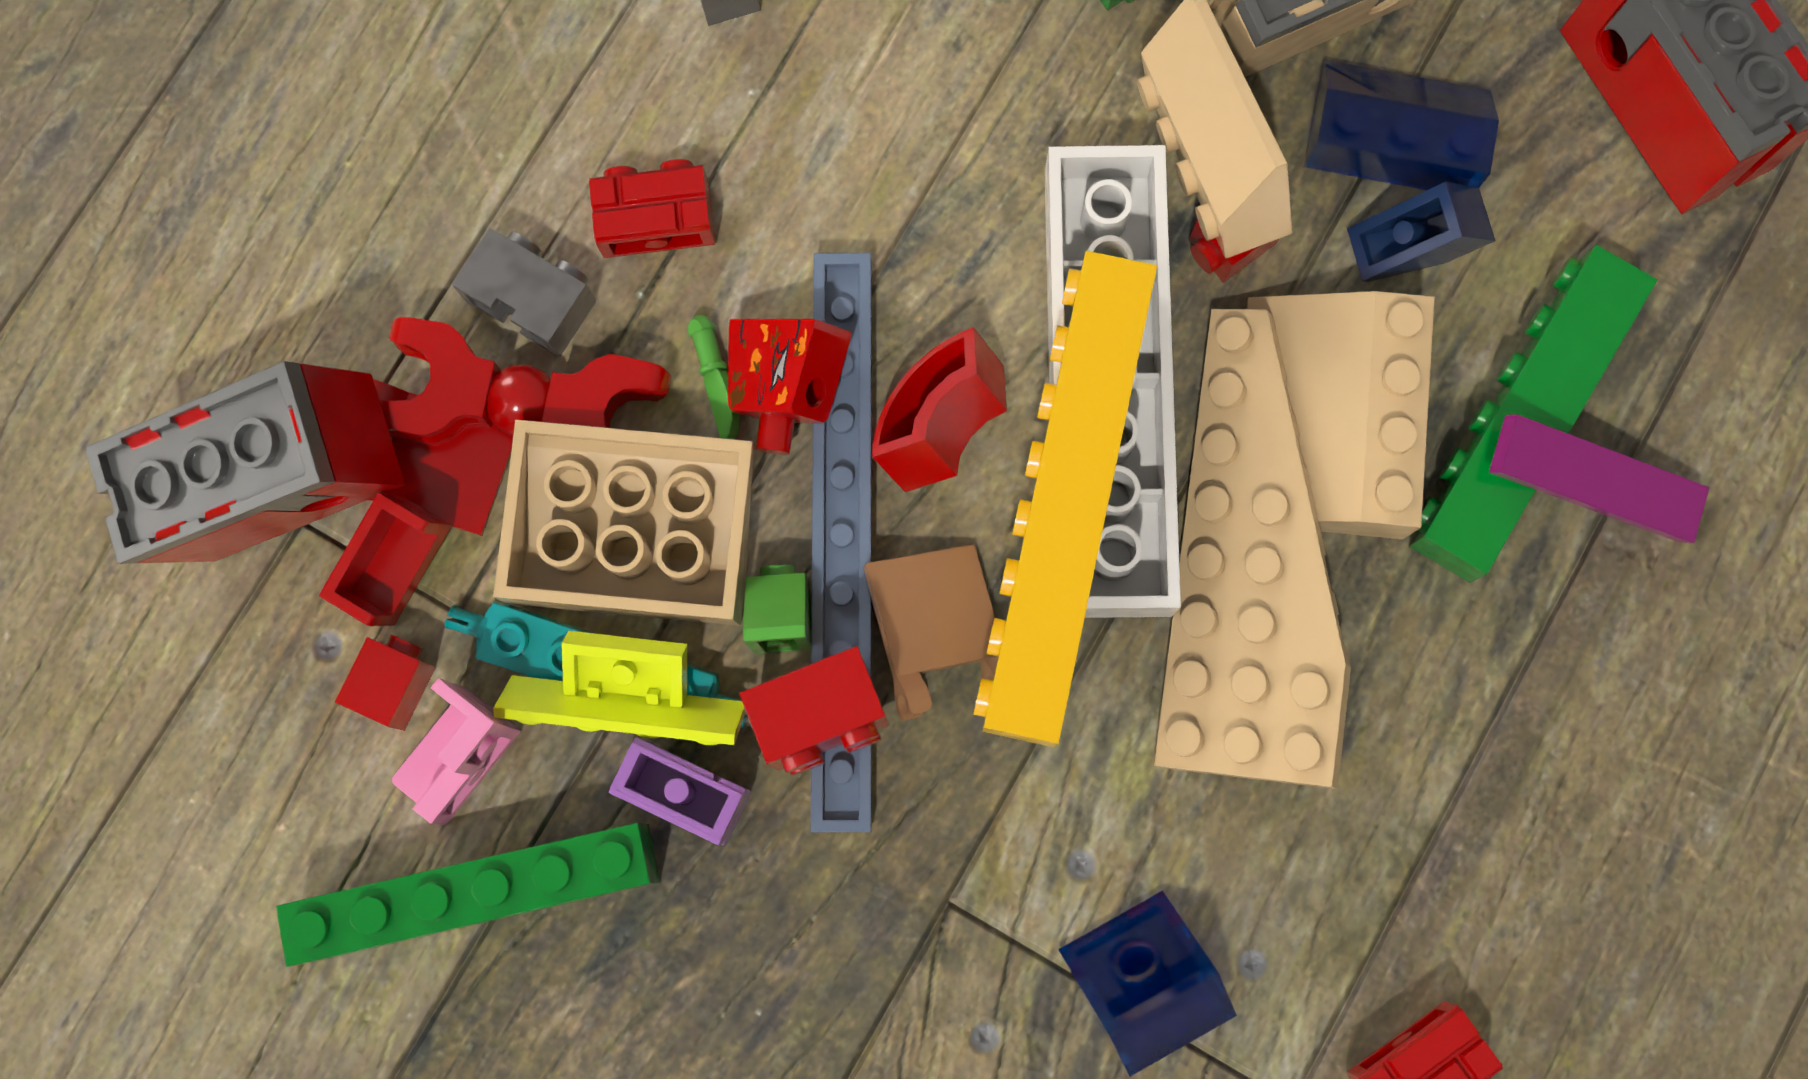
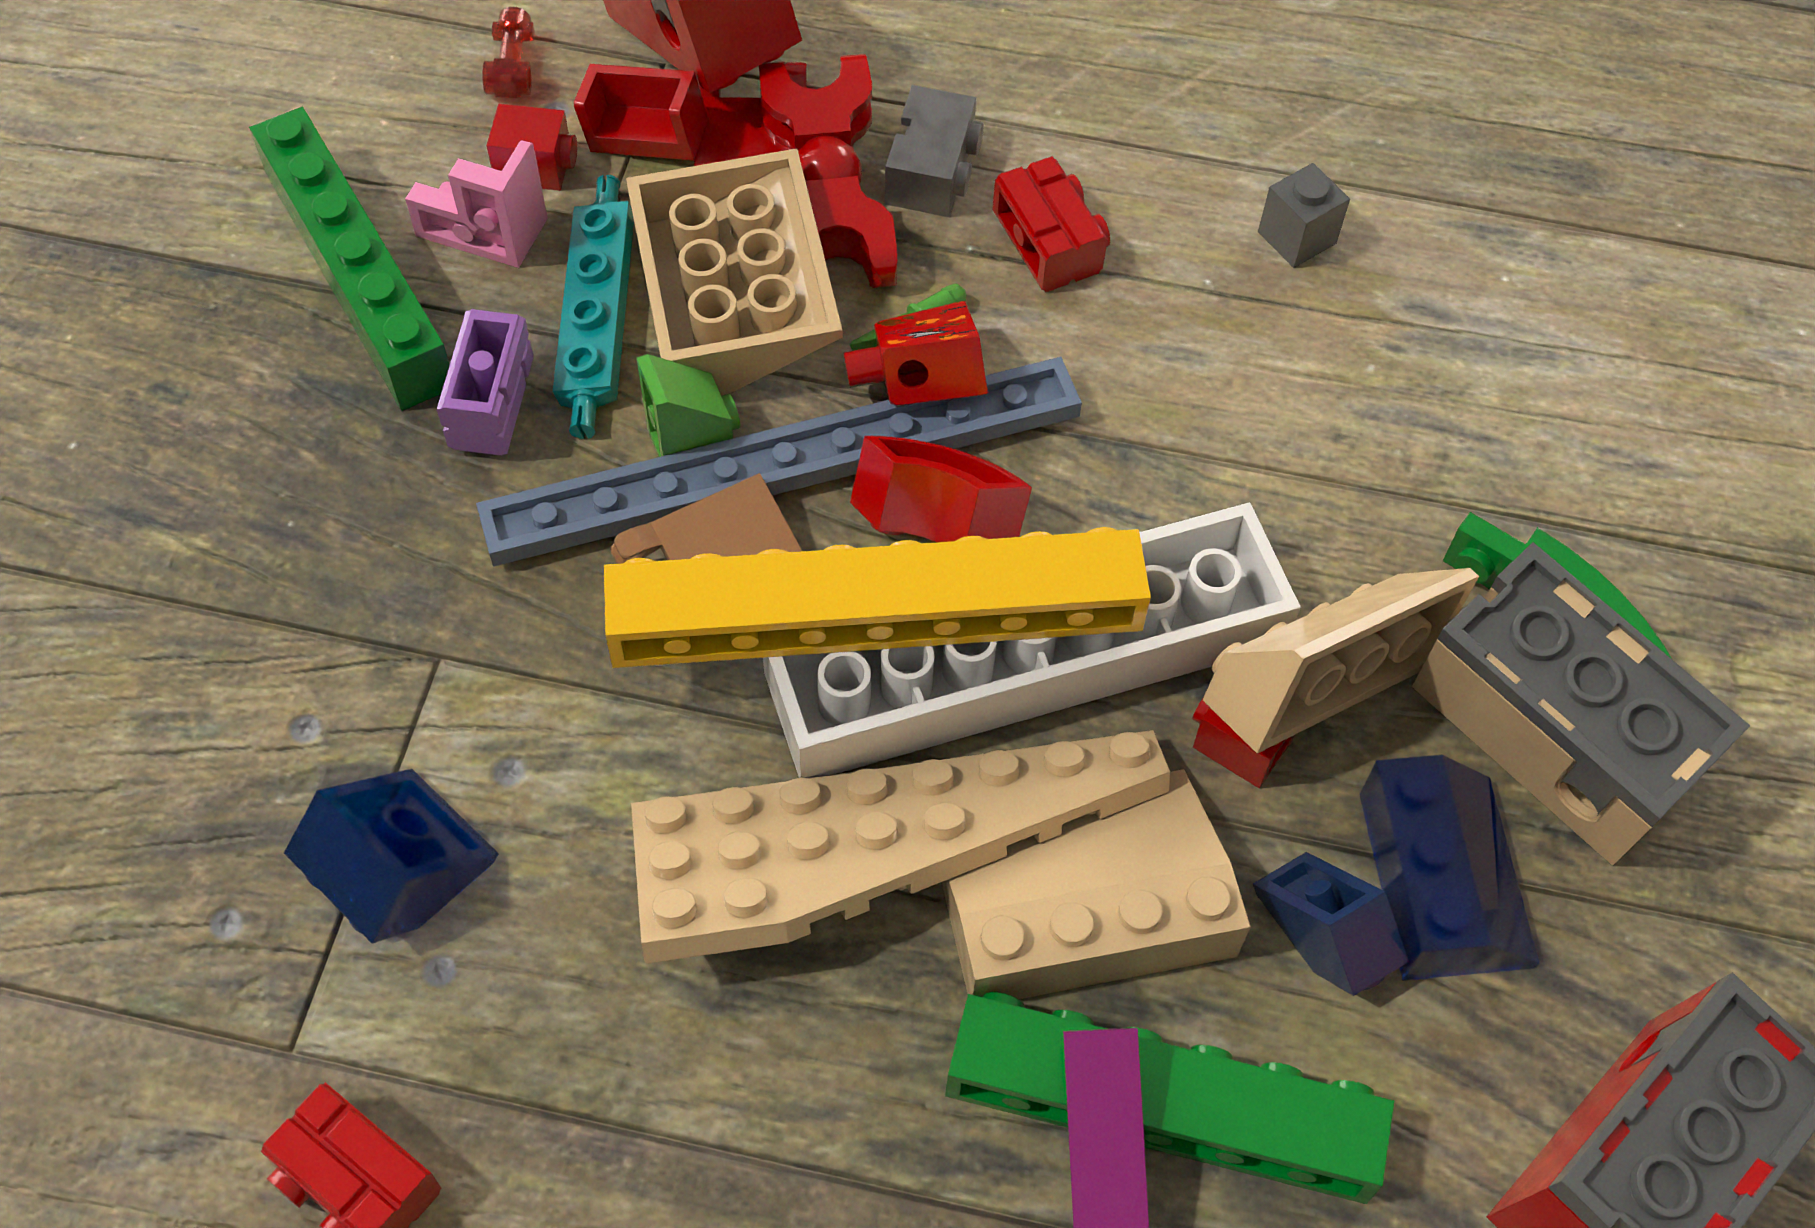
camera: 65 degrees right, 20 degrees down
(274, 686) = (508, 74): none -> clear red bar
(624, 689) = (569, 305): neon yellow bracket -> none
(815, 712) = (588, 445): red piece -> none

